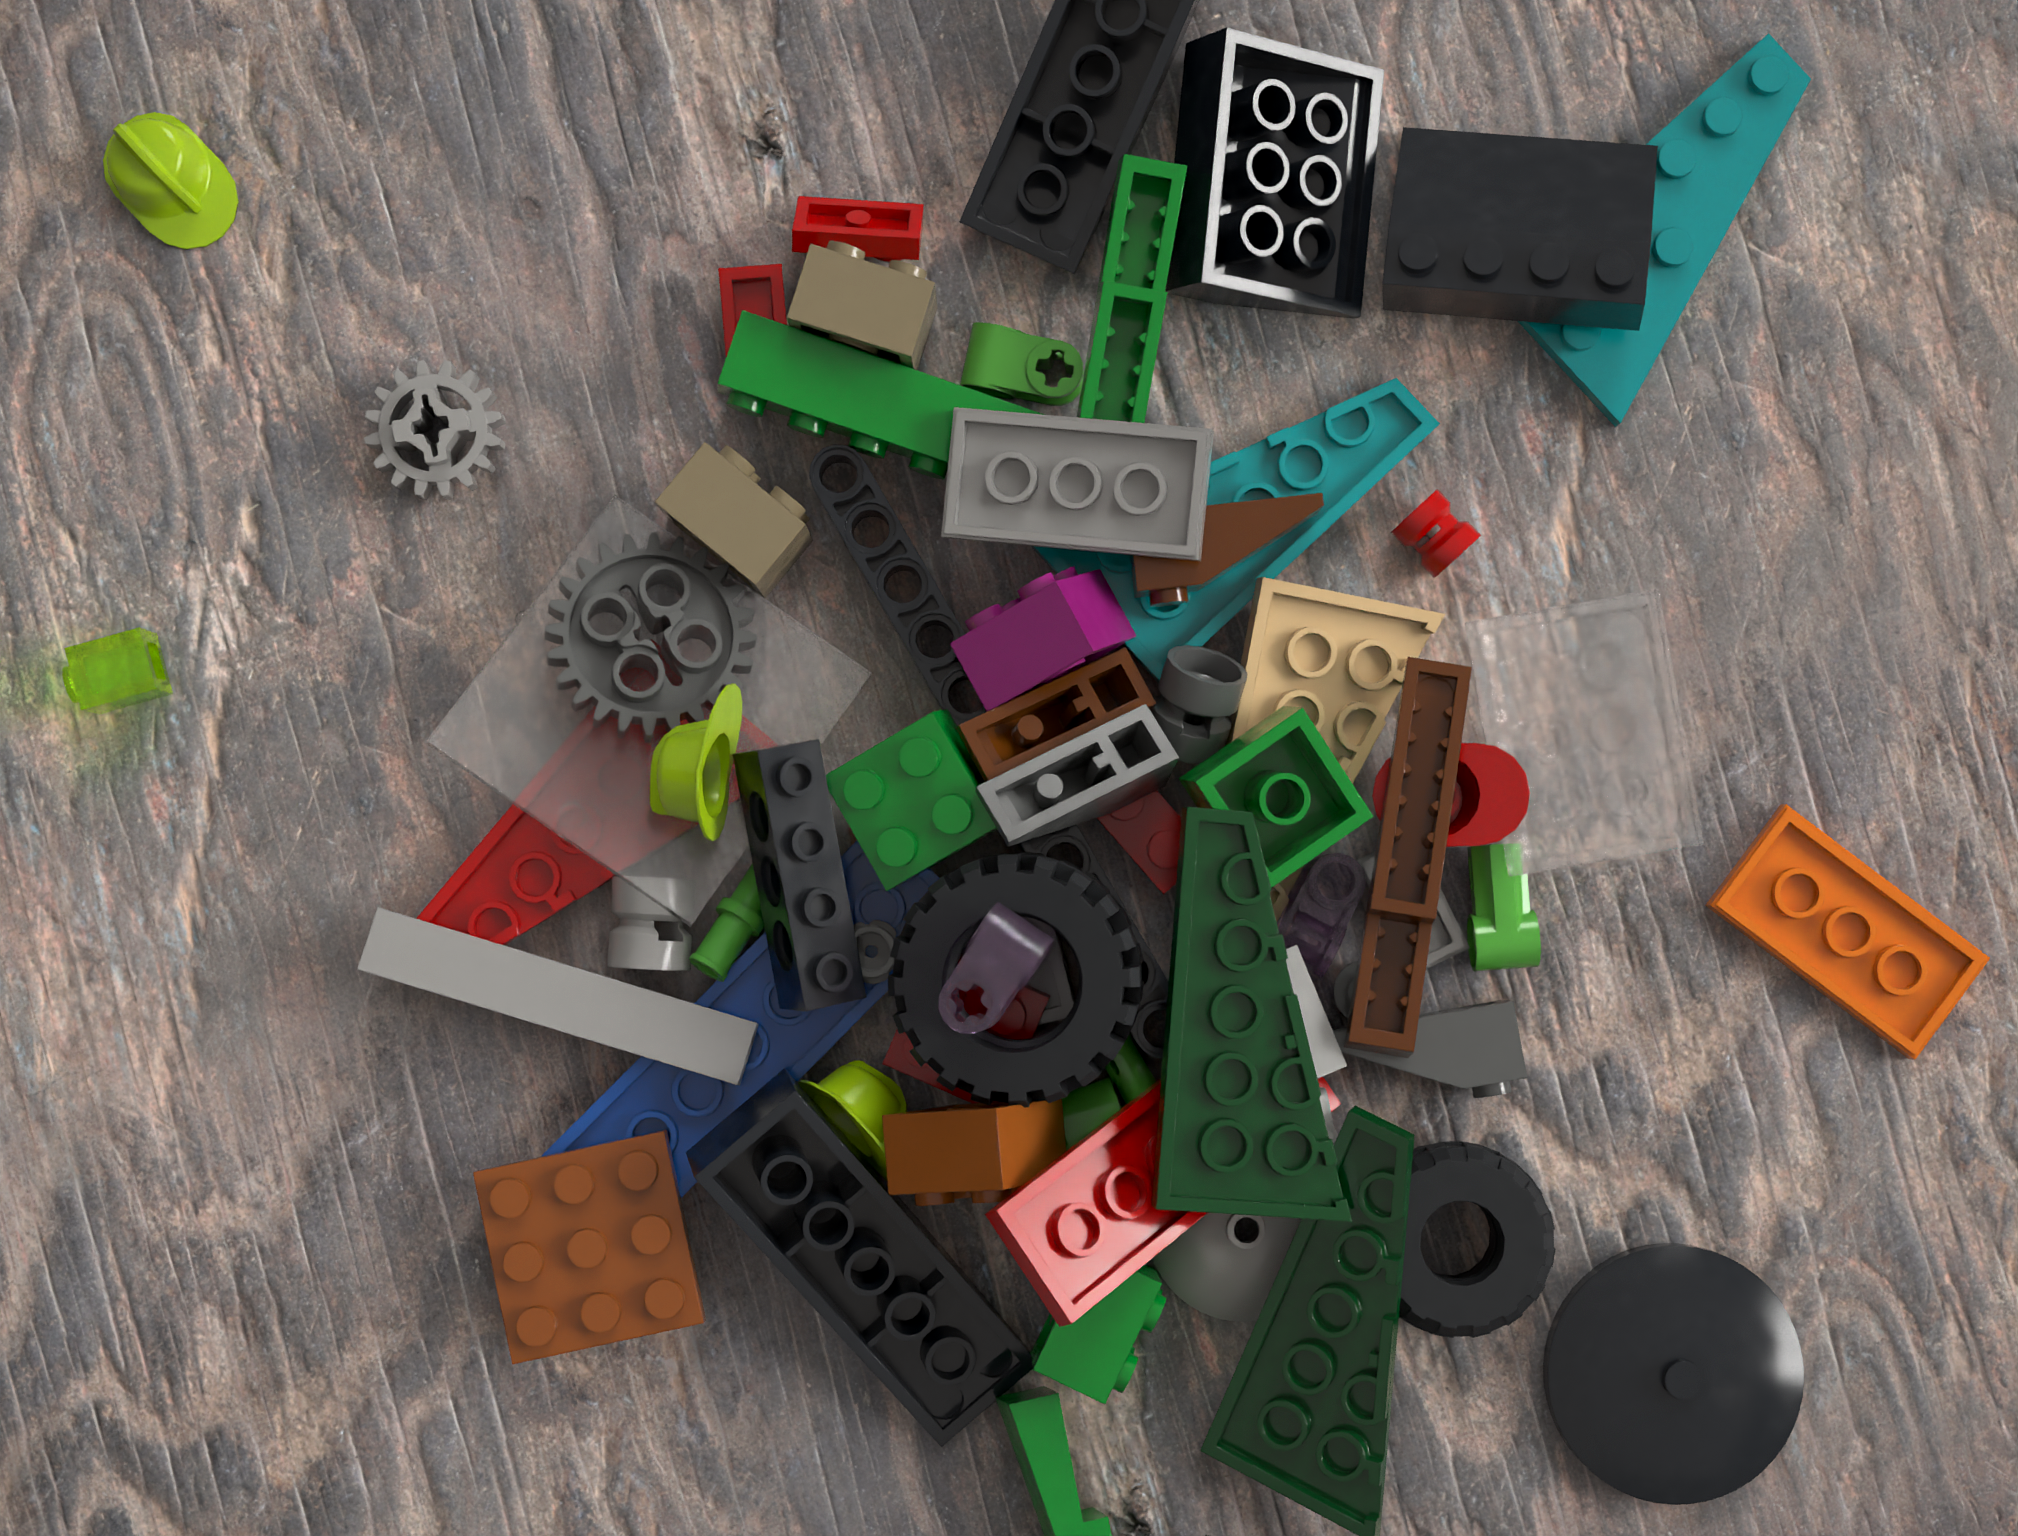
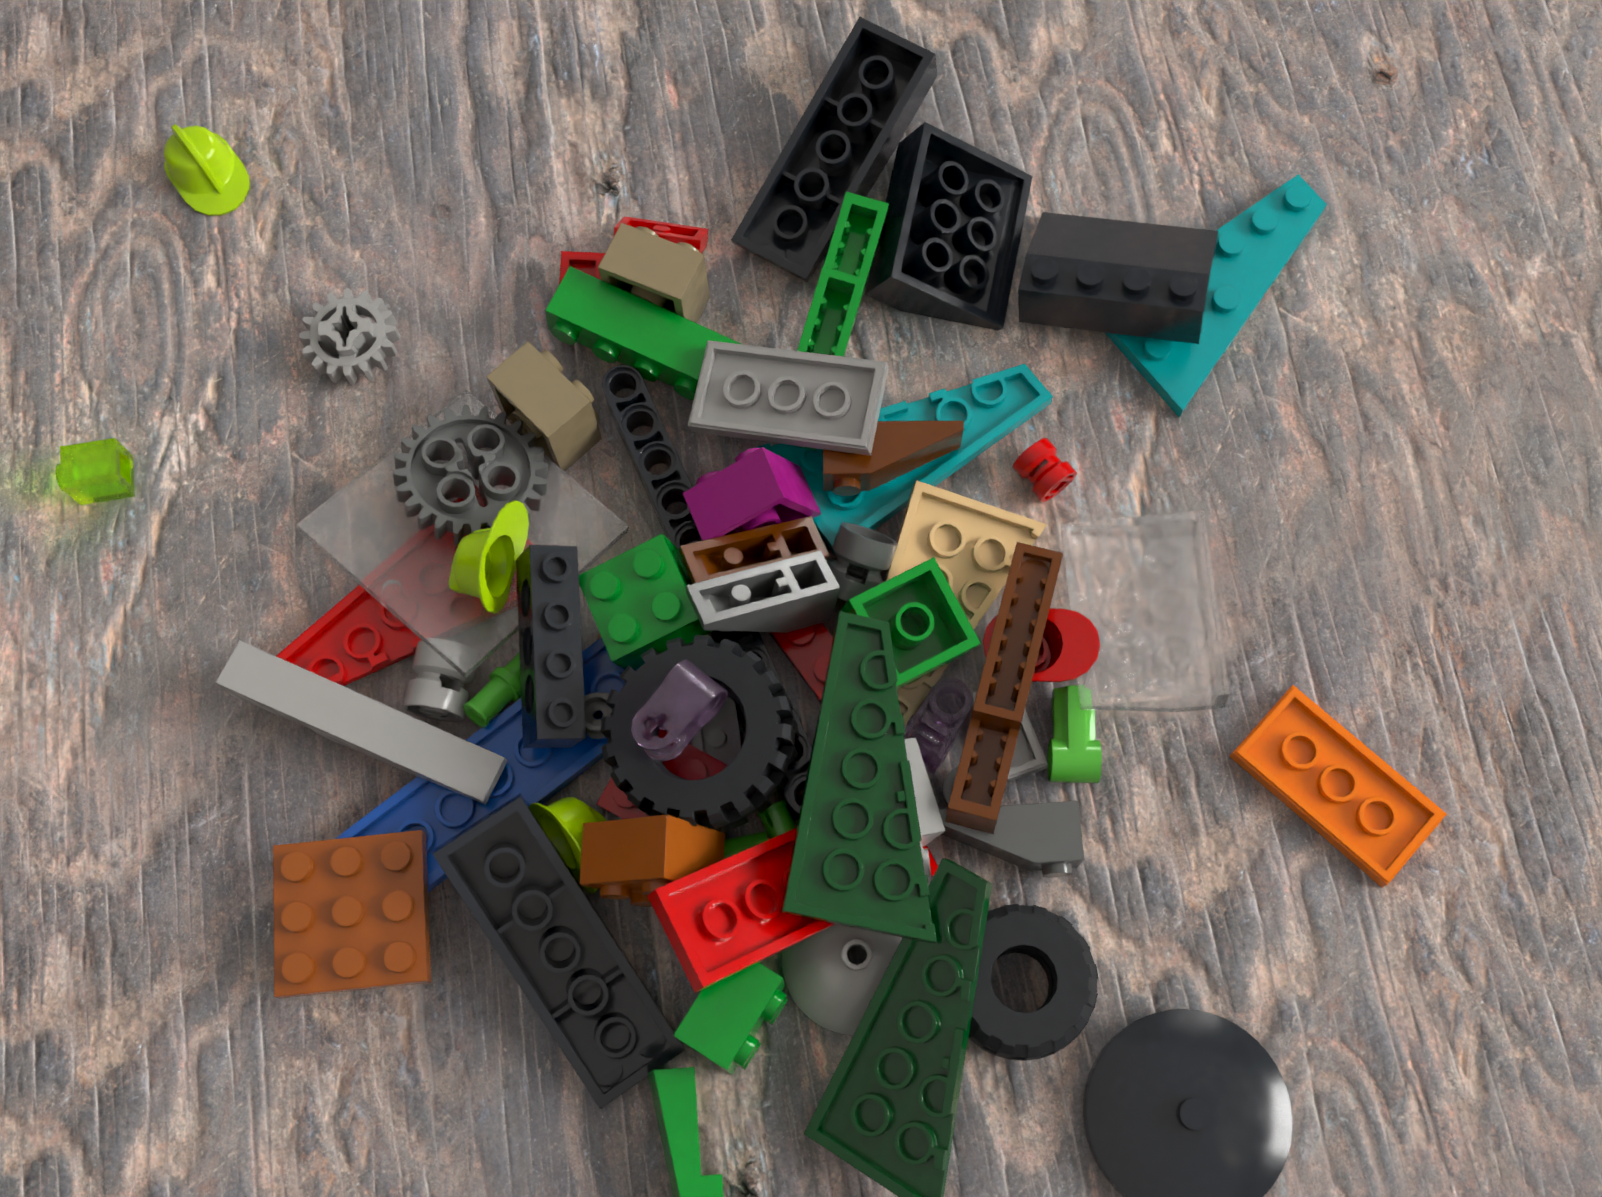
camera: 15 degrees right, 15 degrees down
(1010, 361) = (762, 326): bright green piece -> none

